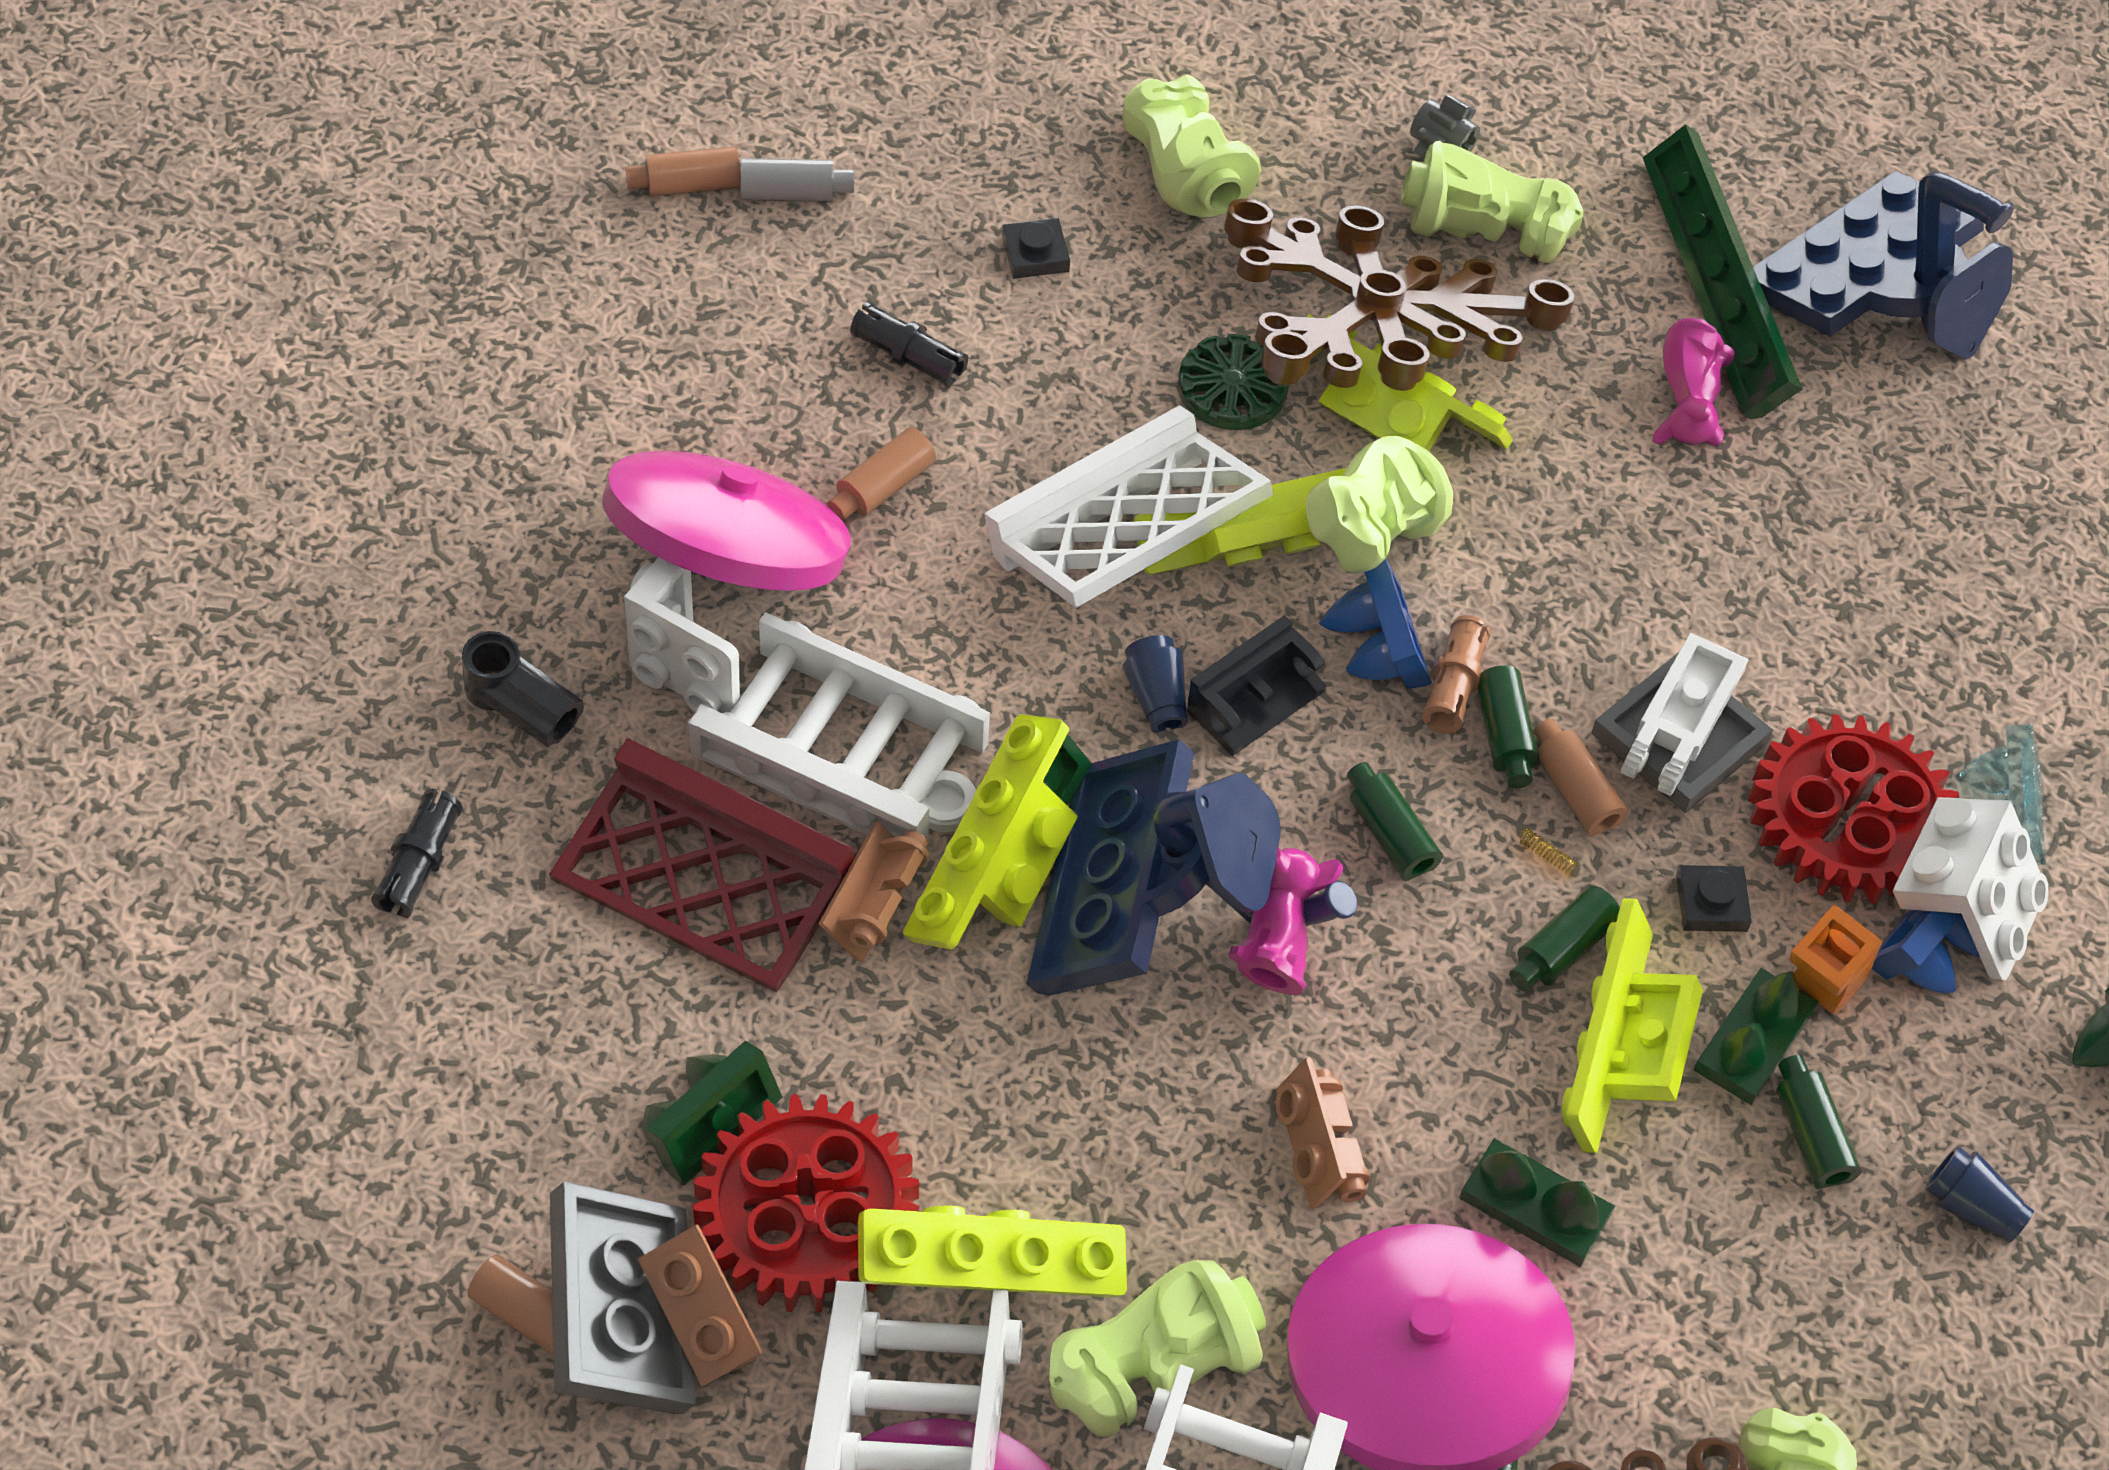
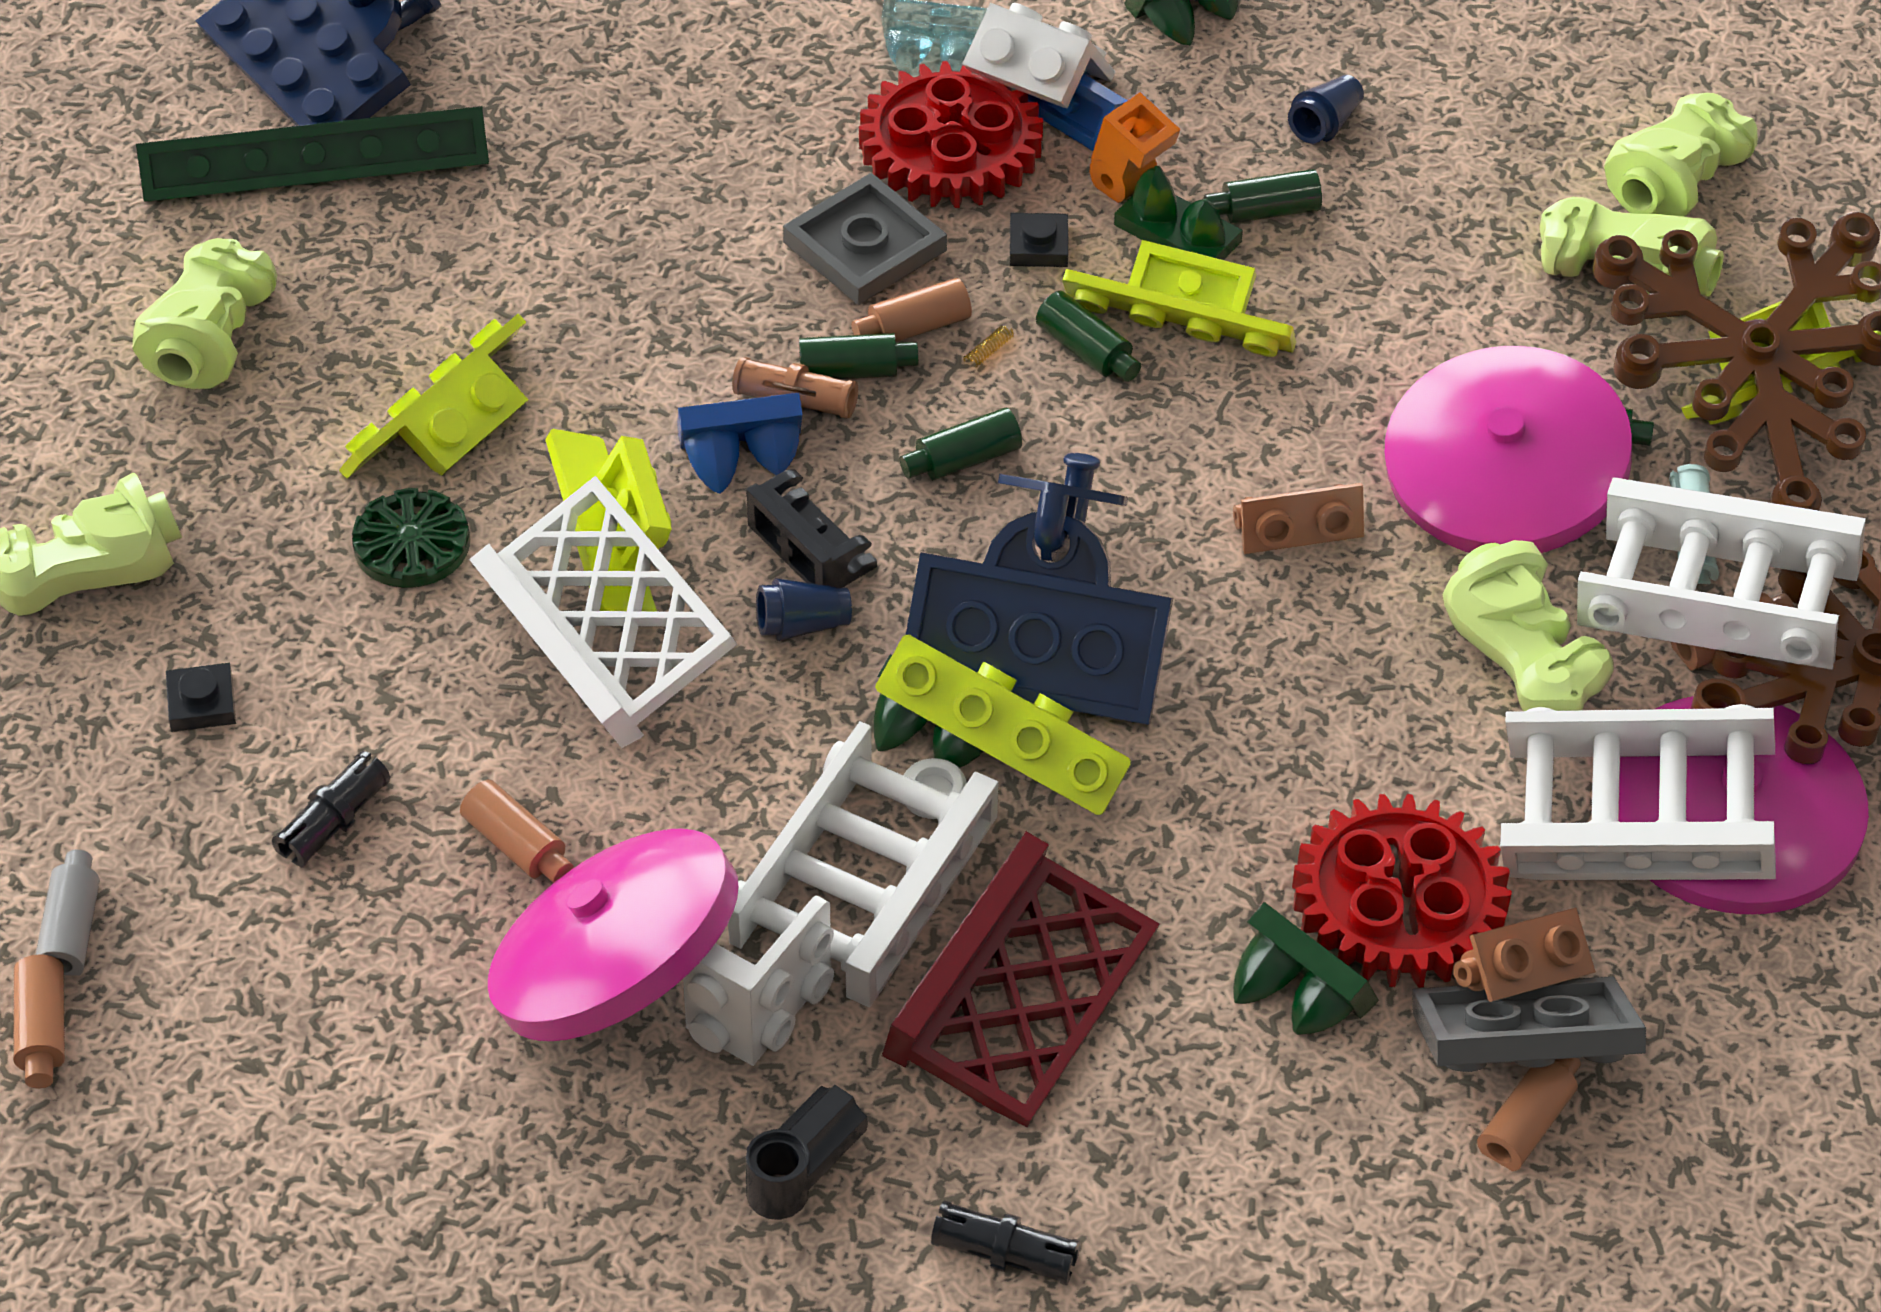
camera: 85 degrees left, 5 degrees down
(873, 889) = (1079, 840): nougat hinge -> none
(991, 1252) = (1463, 729): neon yellow bracket -> none
(1278, 933) = (1120, 526): dark pink animal -> none
(1379, 297) = (335, 396): reddish brown plant -> none
(1382, 494) = (603, 399): yellowish green animal -> none
(1444, 123) = (95, 338): dark grey gear -> none
(1537, 1202) = (1351, 378): dark green tile -> none
(1686, 708) = (867, 218): white hinge -> none
(1693, 368) = (431, 179): dark pink animal -> none

